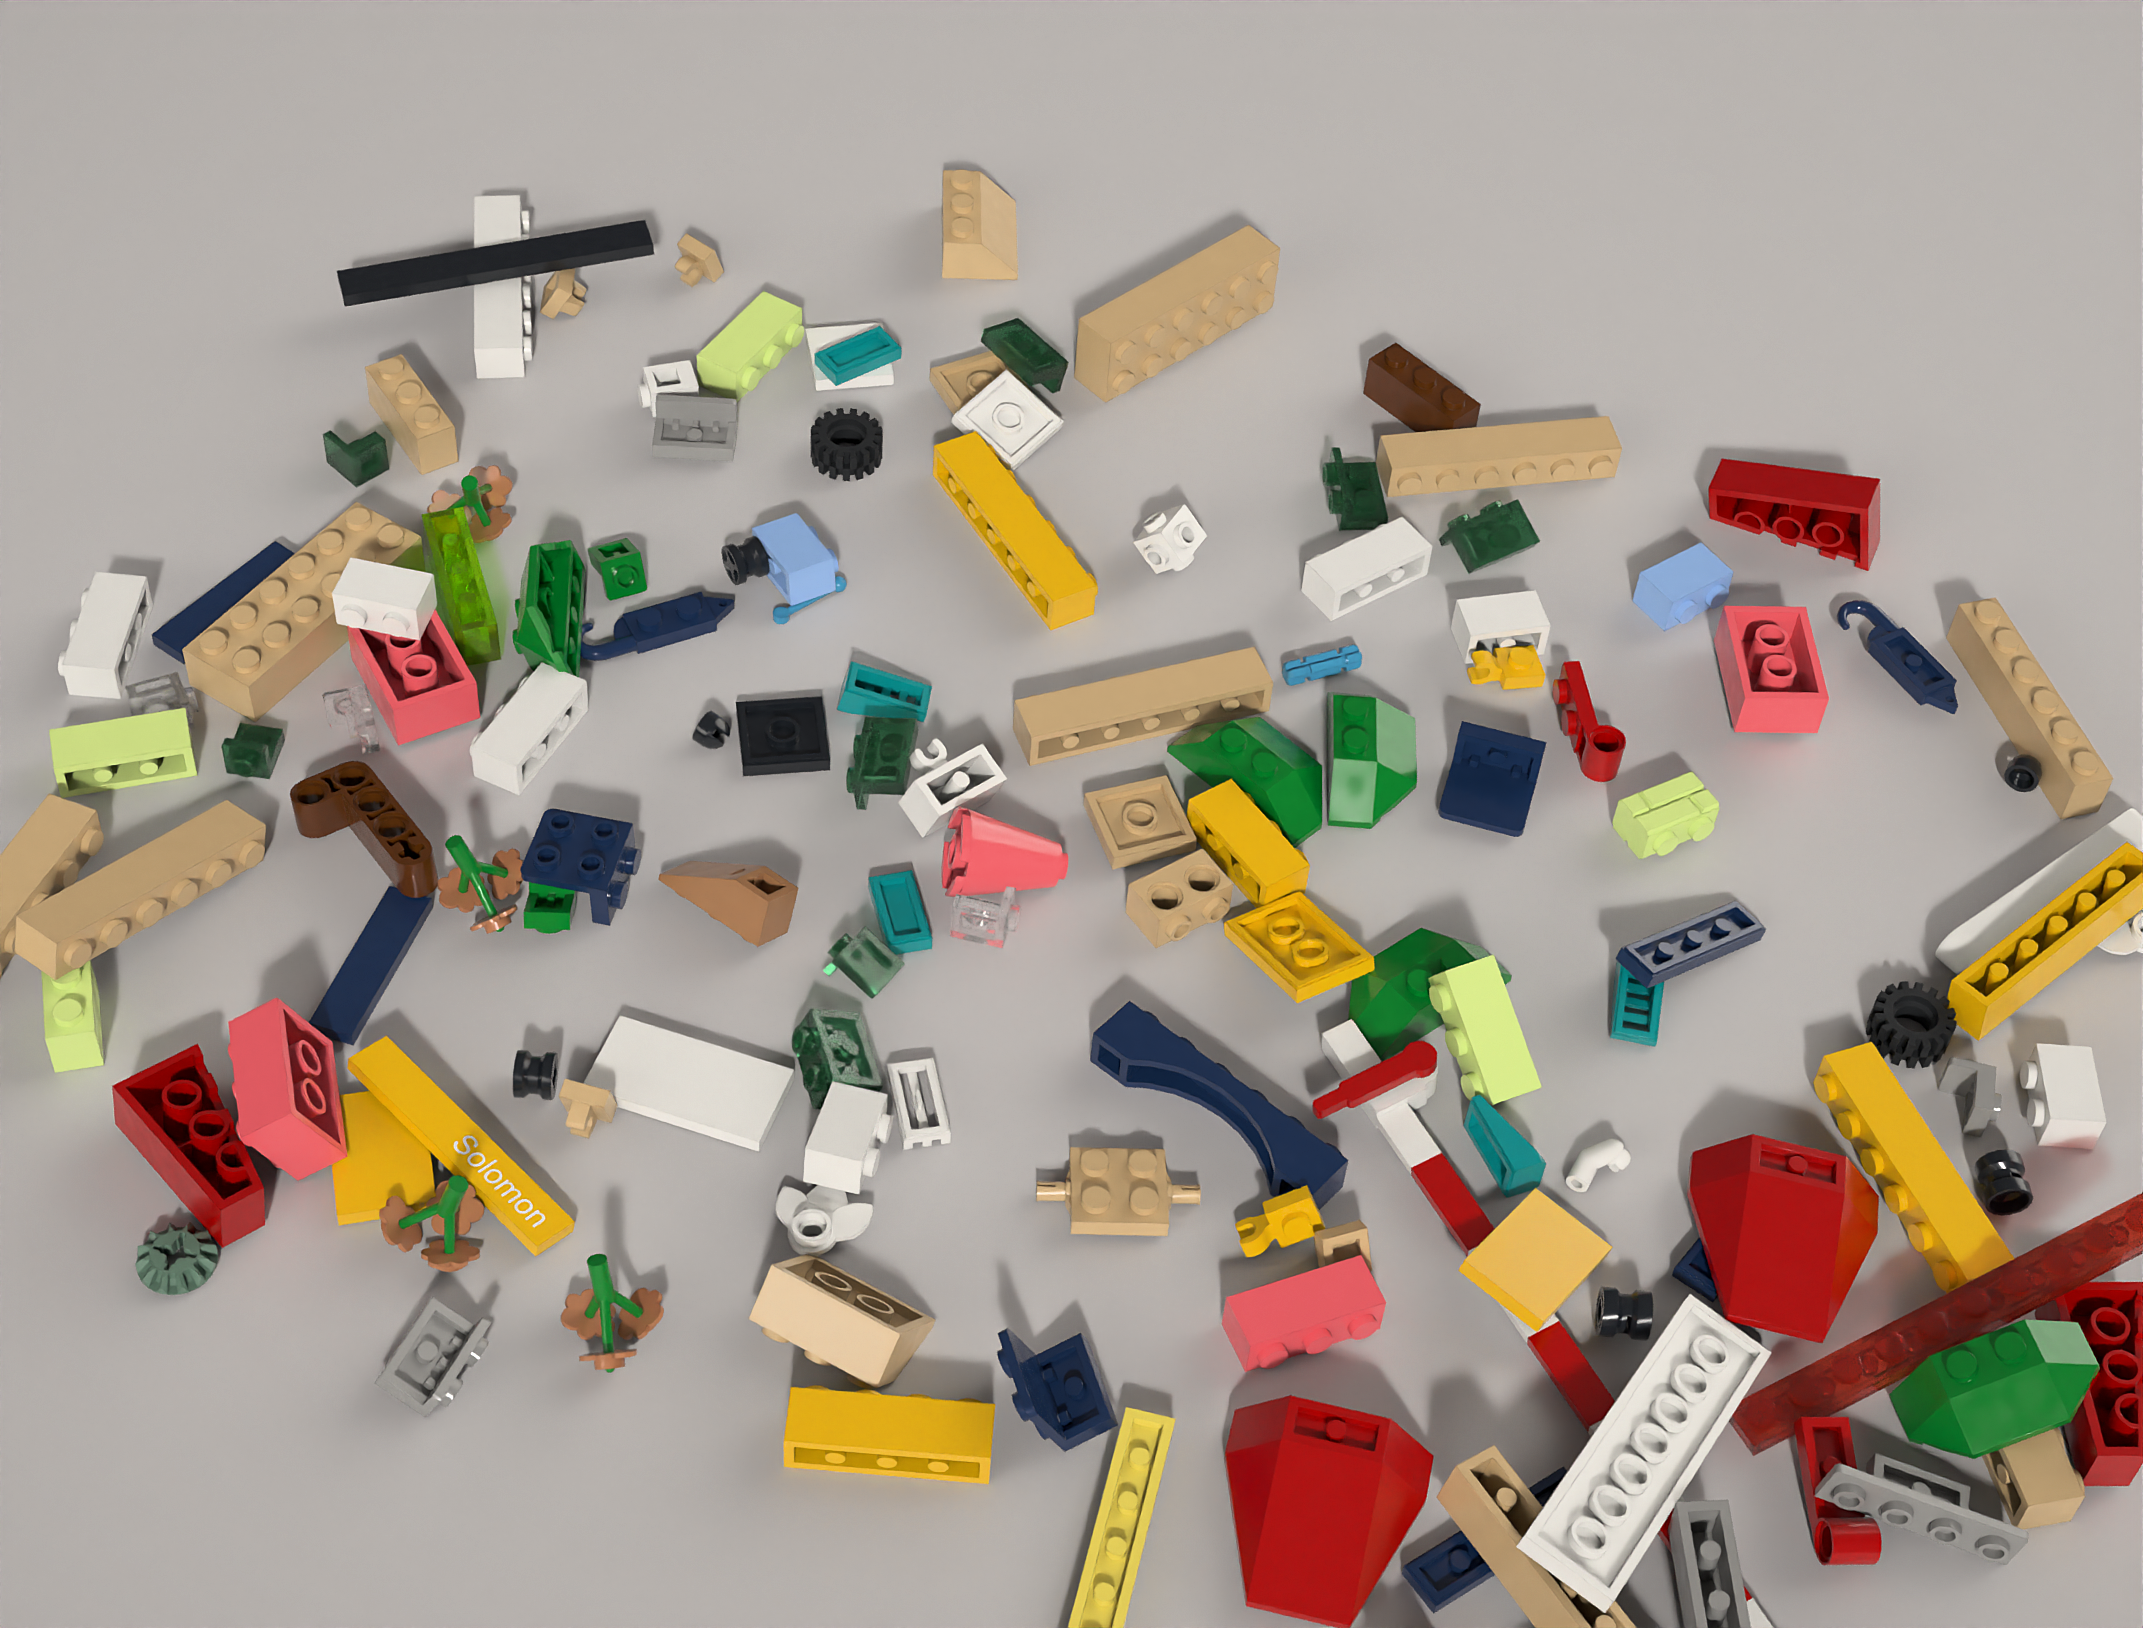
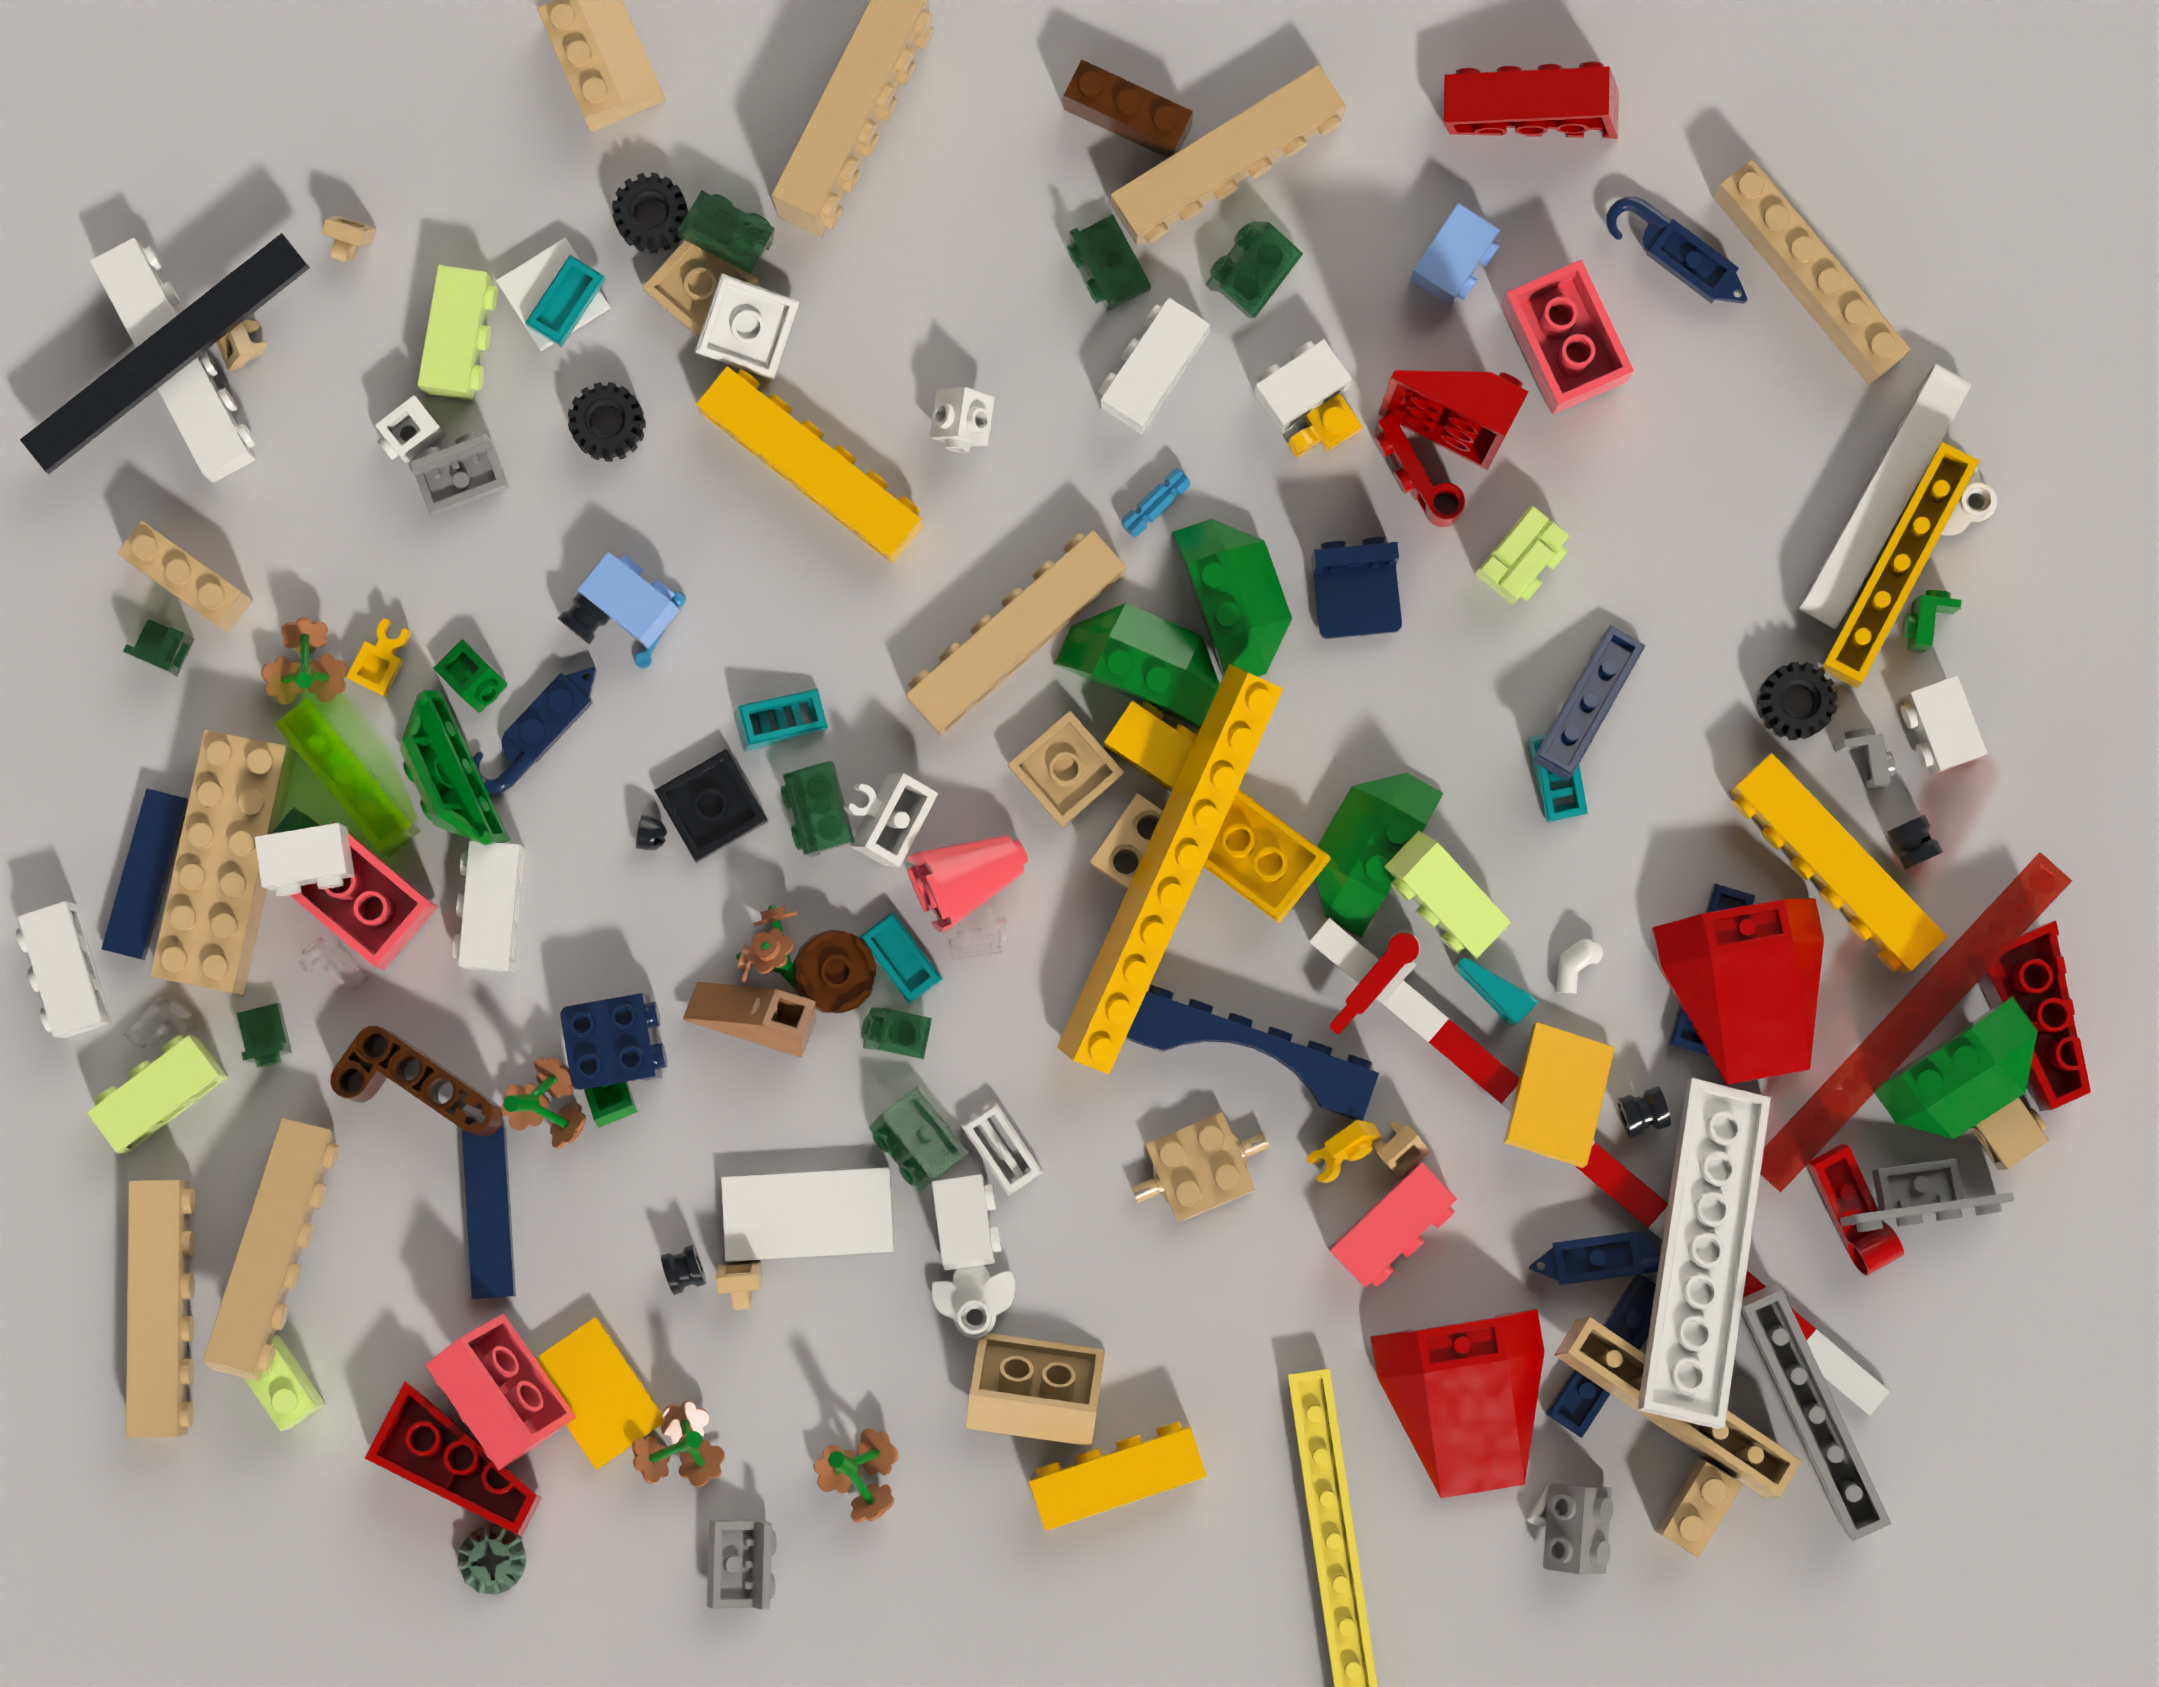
camera: 15 degrees left, 35 degrees up
(461, 1145) = (657, 1364): yellow tile -> none
(542, 527) = (377, 664): none -> yellow plate
(784, 828) = (770, 950): none -> nougat plant
(831, 891) = (834, 971): none -> reddish brown tile
(960, 317) = (633, 195): none -> black tyre
(1058, 1389) = (1228, 1386): dark blue bracket -> none
(1202, 908) = (1169, 869): none -> yellow brick
(1518, 1430) = (1599, 1258): none -> dark blue plate
(1644, 651) = (1456, 409): none -> red slope
(2023, 773) = (1825, 351): black hinge -> none
(2076, 995) = (1921, 622): none -> green bracket

